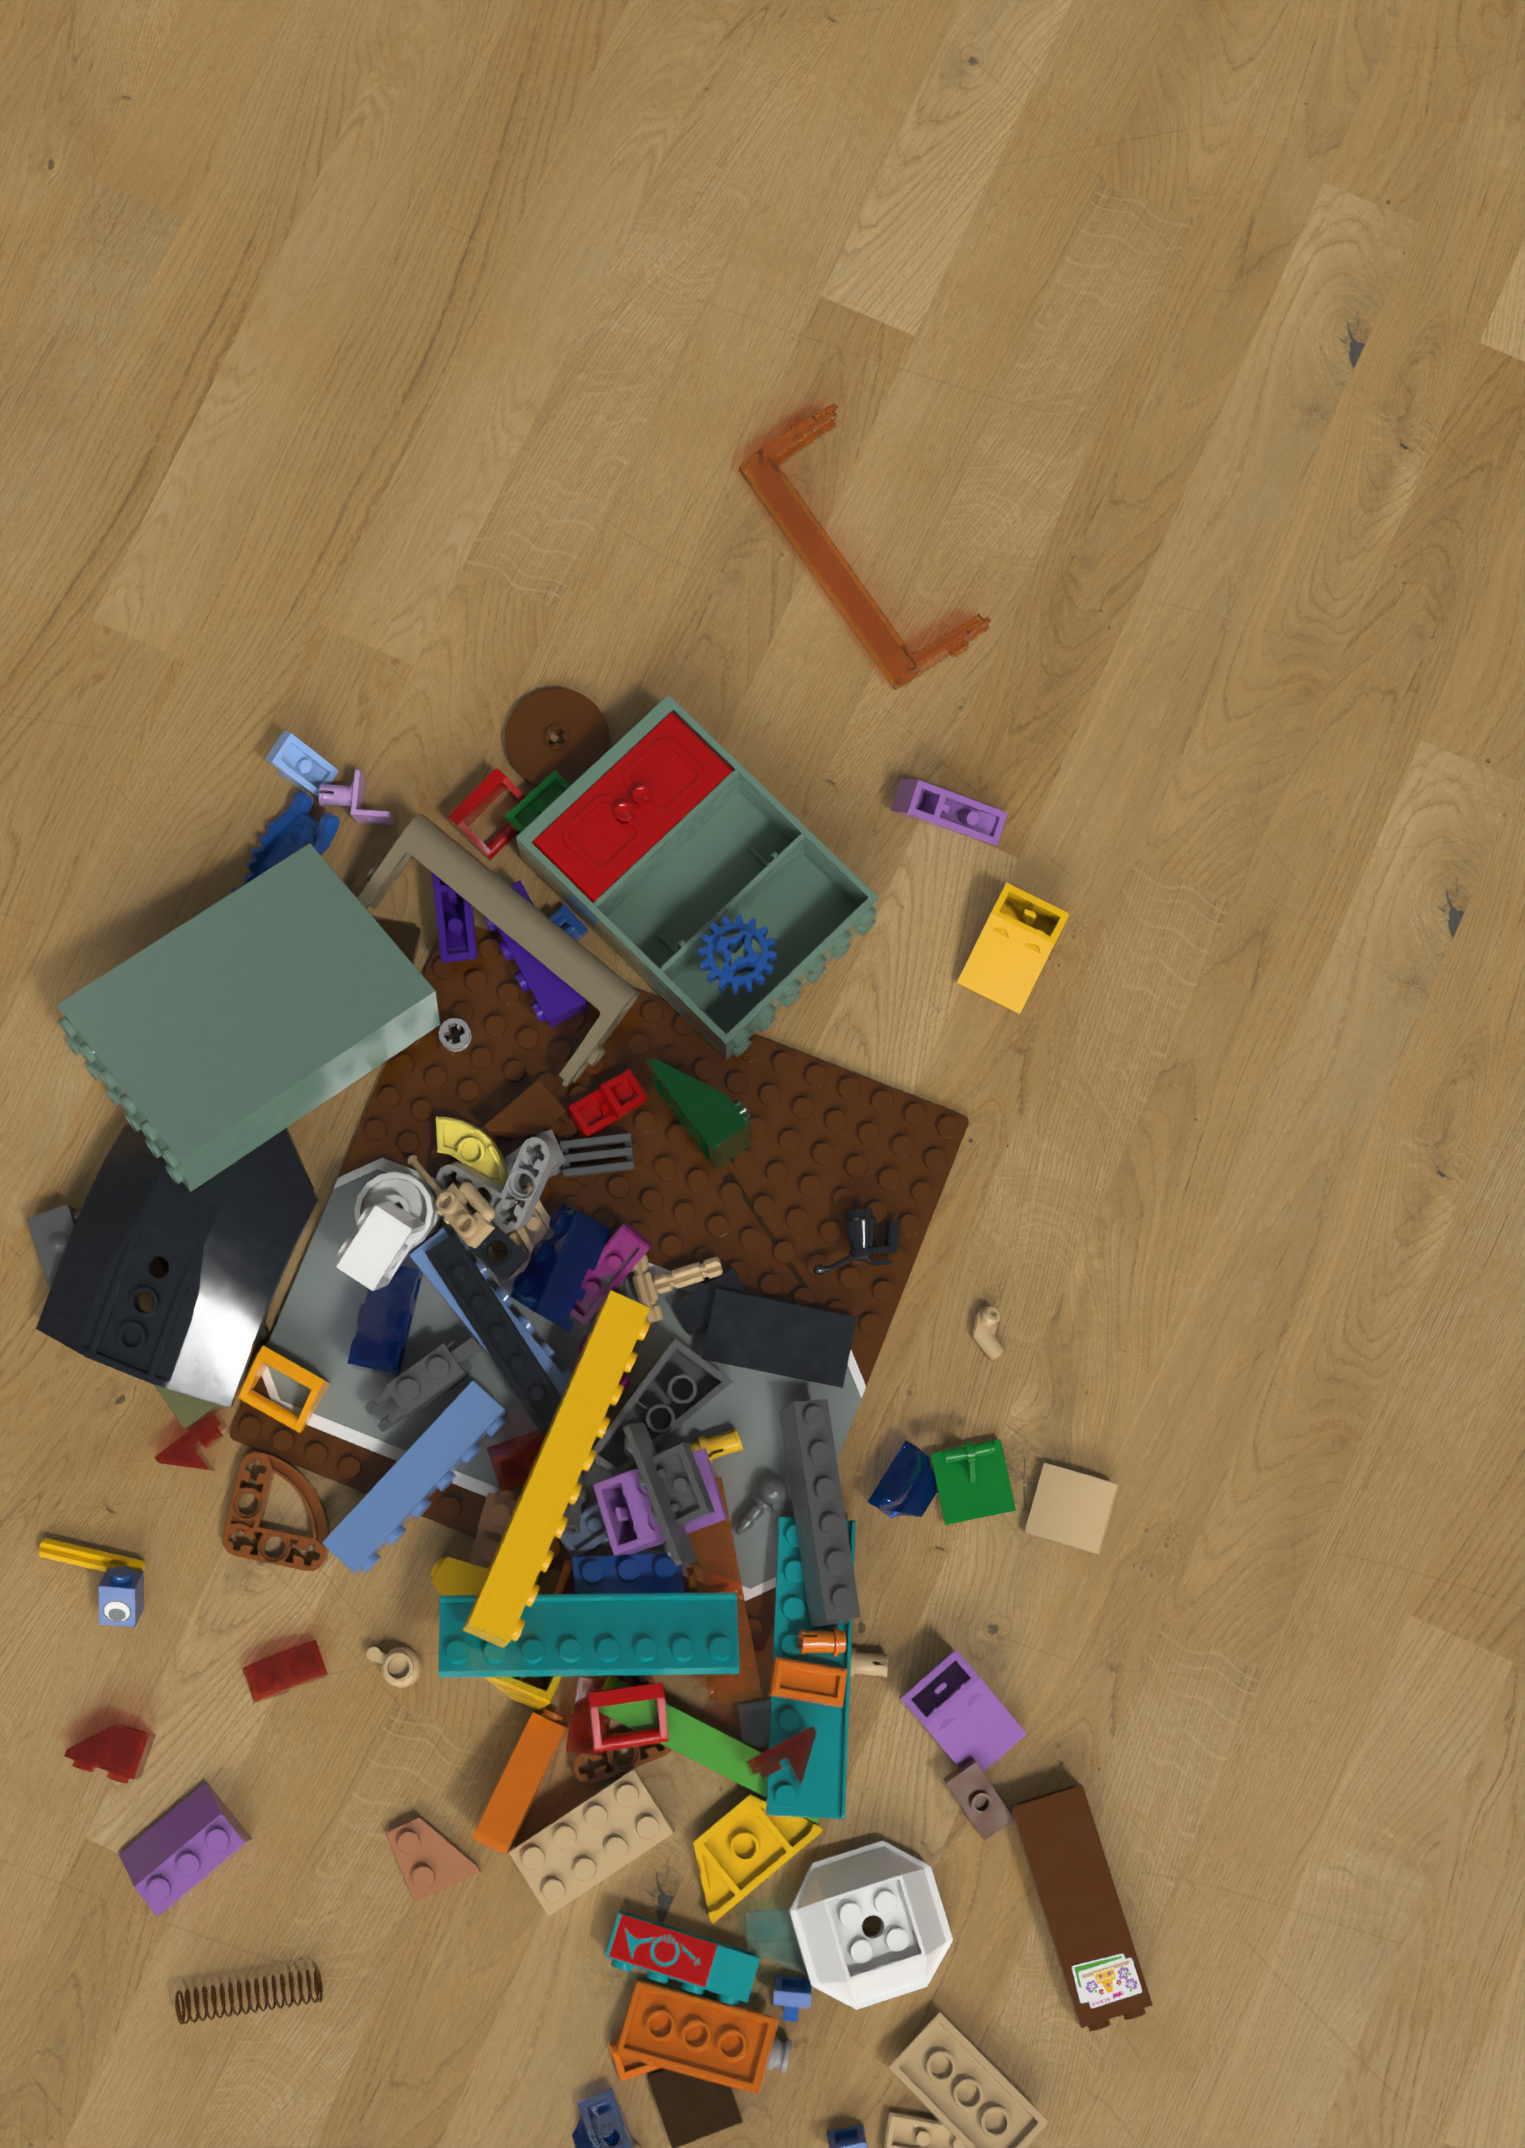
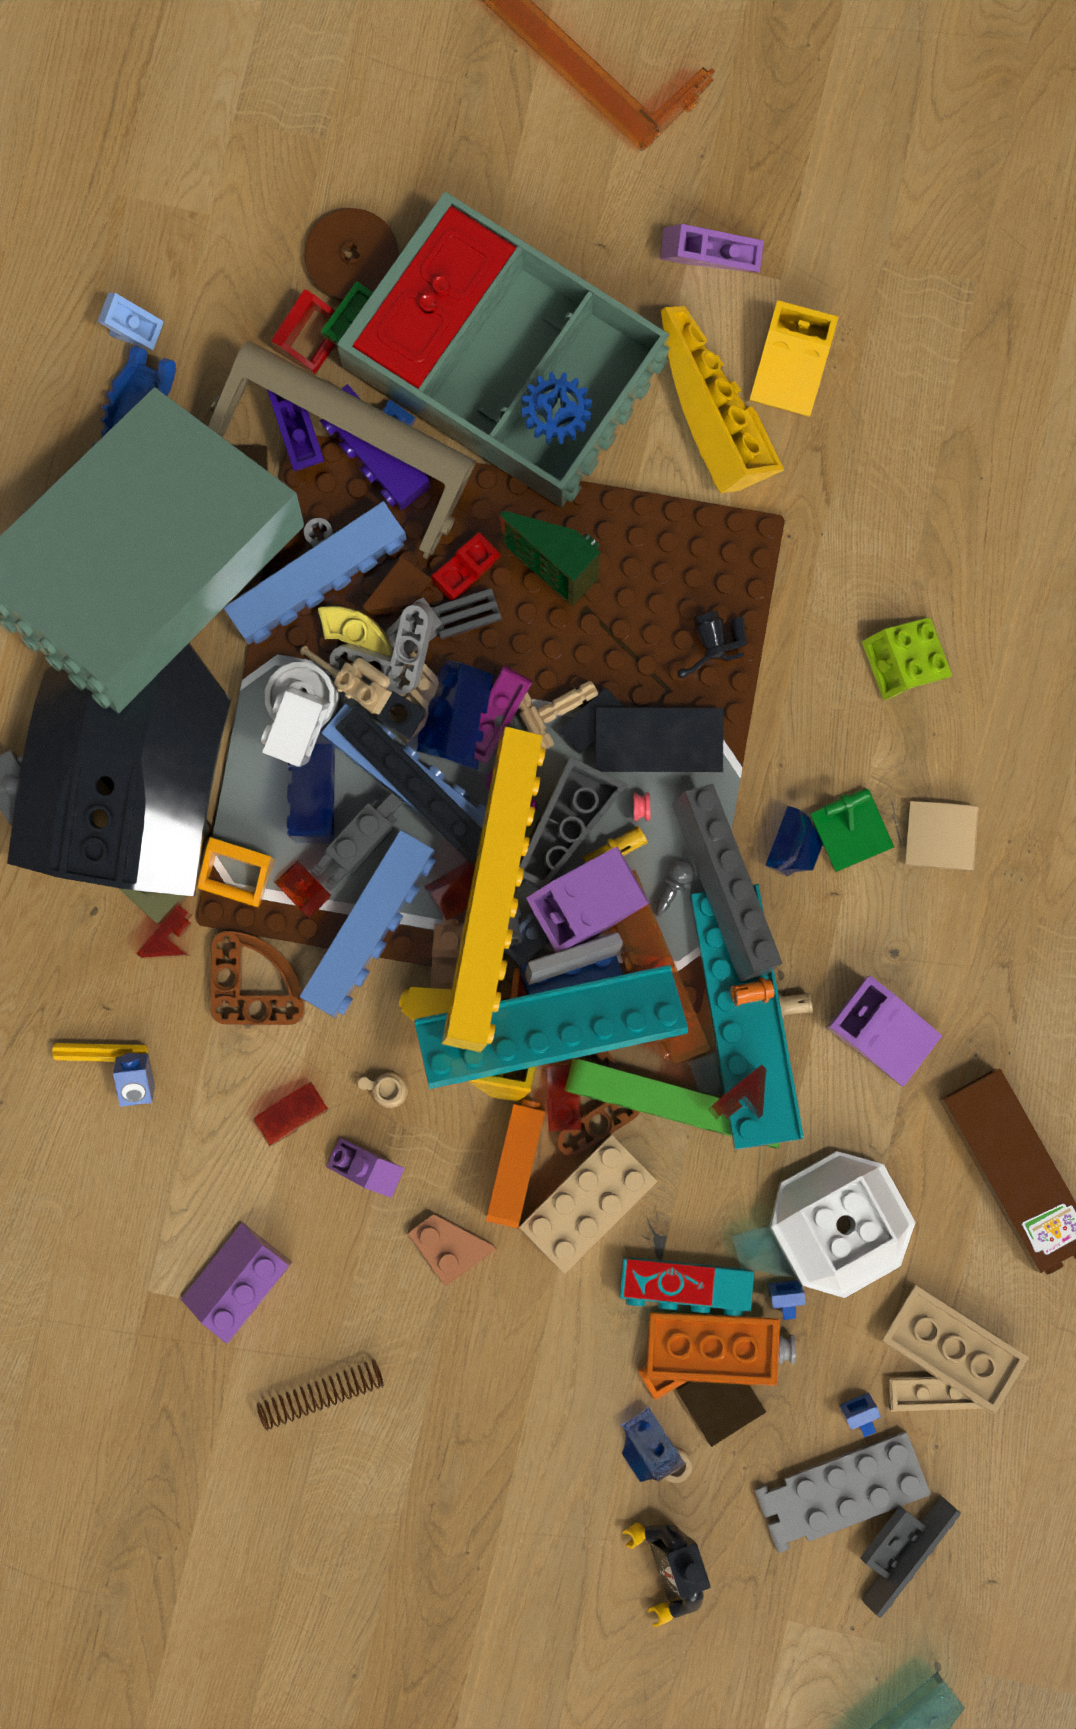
camera: 10 degrees left, 5 degrees up
(116, 1749) = (159, 1211): clear red slope -> none
(353, 1423) = (303, 889): none -> clear red slope
(354, 798) = (182, 342): lavender bracket -> none
(354, 1749) = (365, 1168): none -> medium lavender slope
(442, 1078) = (316, 573): none -> medium blue brick
(624, 1564) = (573, 958): none -> light grey tile
(627, 1695) = (591, 1072): red tile -> none
(673, 1488) = (598, 885): dark grey bracket -> none
(744, 1408) = (641, 806): none -> coral bush
(745, 1851) = (721, 1184): yellow wing -> none
(808, 1682) = (747, 1029): orange tile -> none
(920, 1005) = (723, 427): none -> yellow wedge
(978, 1799) = (912, 1099): reddish brown plate -> none
(985, 1329) = (836, 698): tan arm -> none
(1072, 1301) = (906, 657): none -> lime bracket

